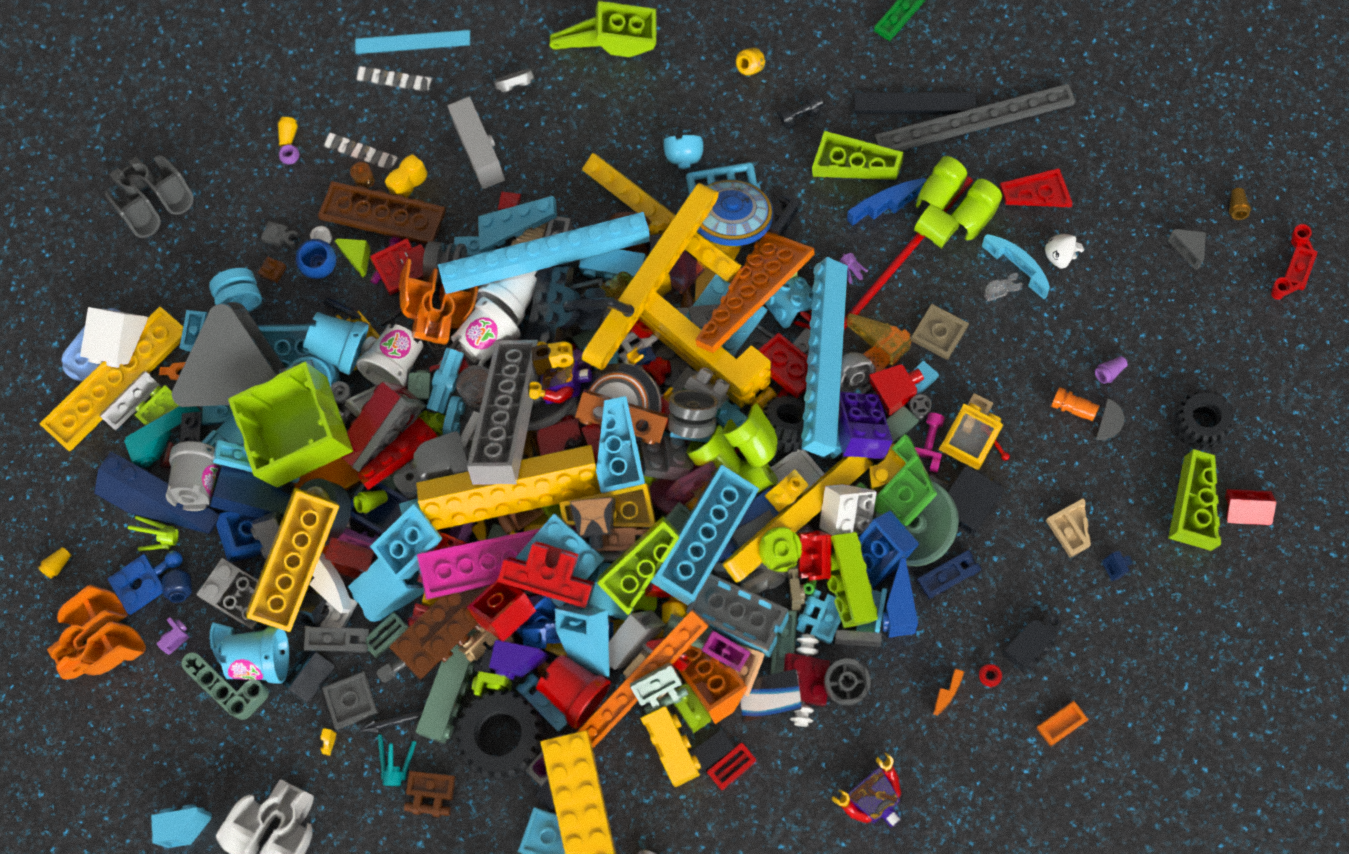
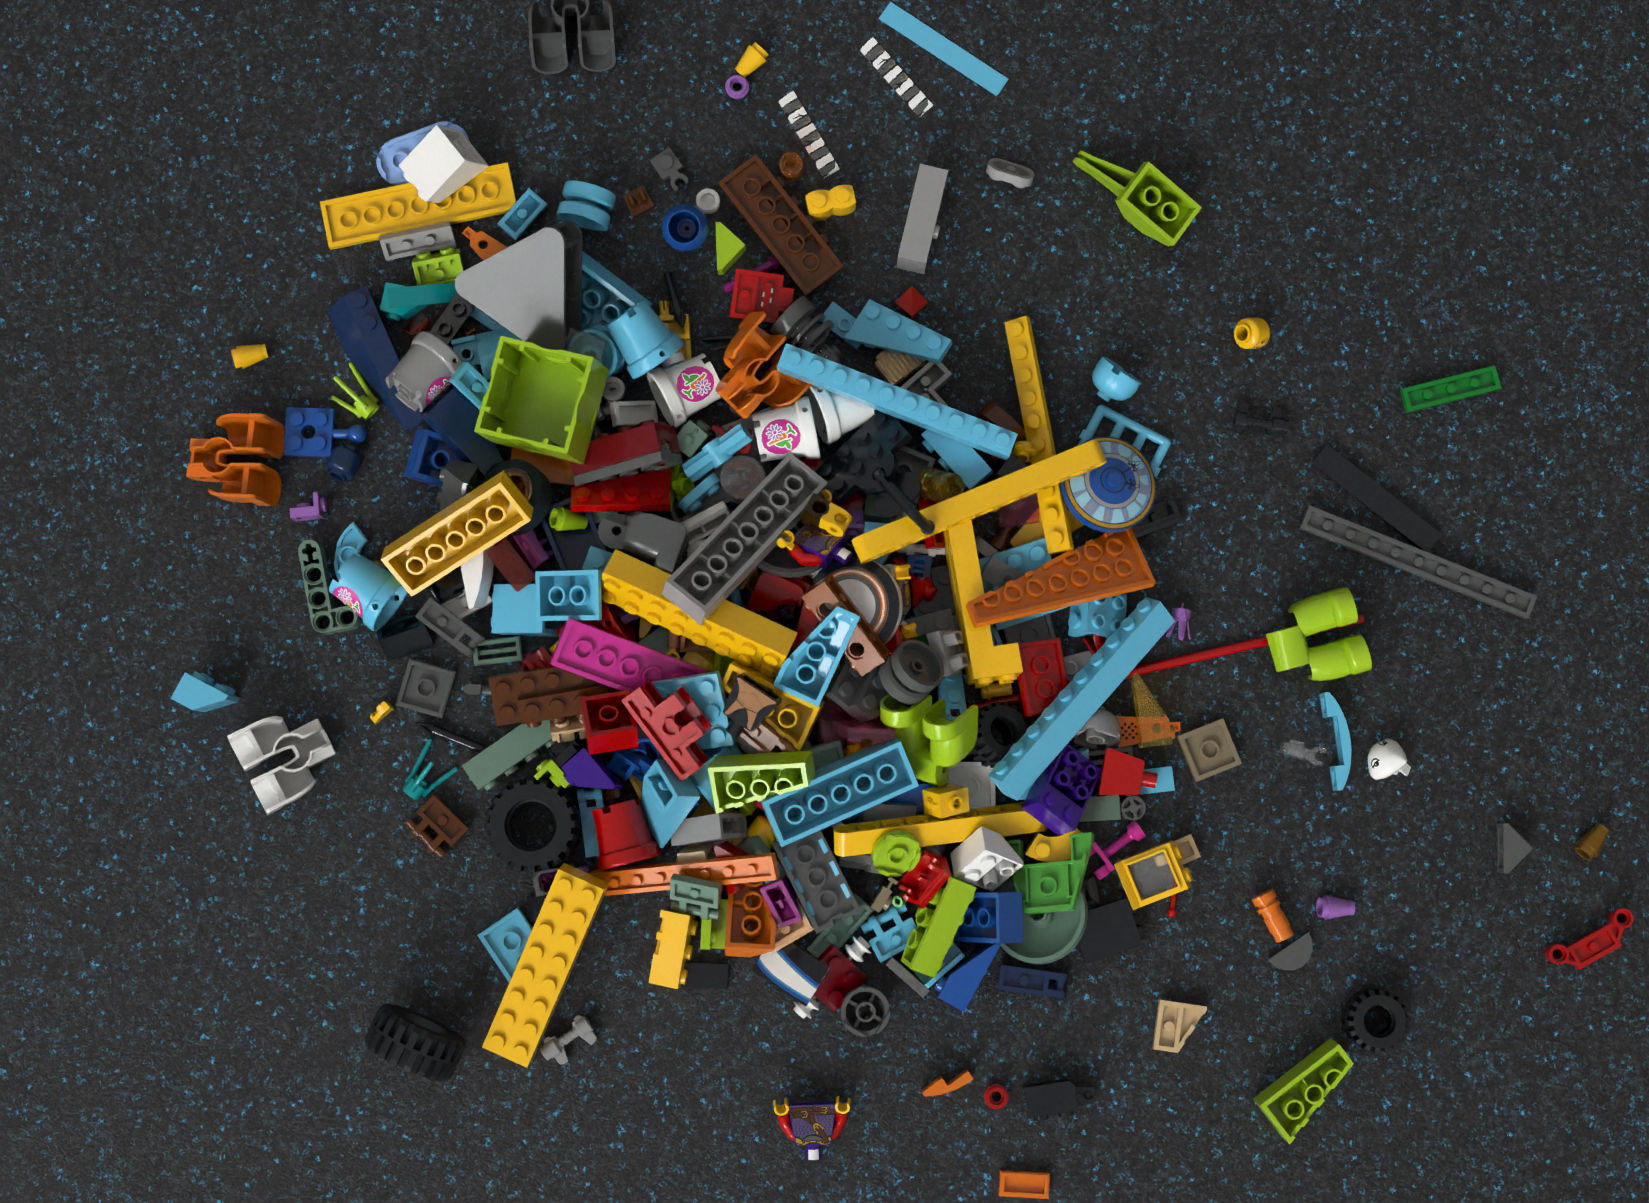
camera: 30 degrees right, 15 degrees up
(230, 591) = (388, 509): light grey slope -> none
(716, 779) = (734, 1010): red tile -> none
(853, 158) = (1268, 515): lime wedge -> none
(891, 198) = (1274, 584): blue slope -> none
(1037, 190) = (1417, 681): red wing -> none
(1117, 565) = (1186, 1088): dark blue tile -> none
(1250, 507) = (1349, 1127): panel -> none

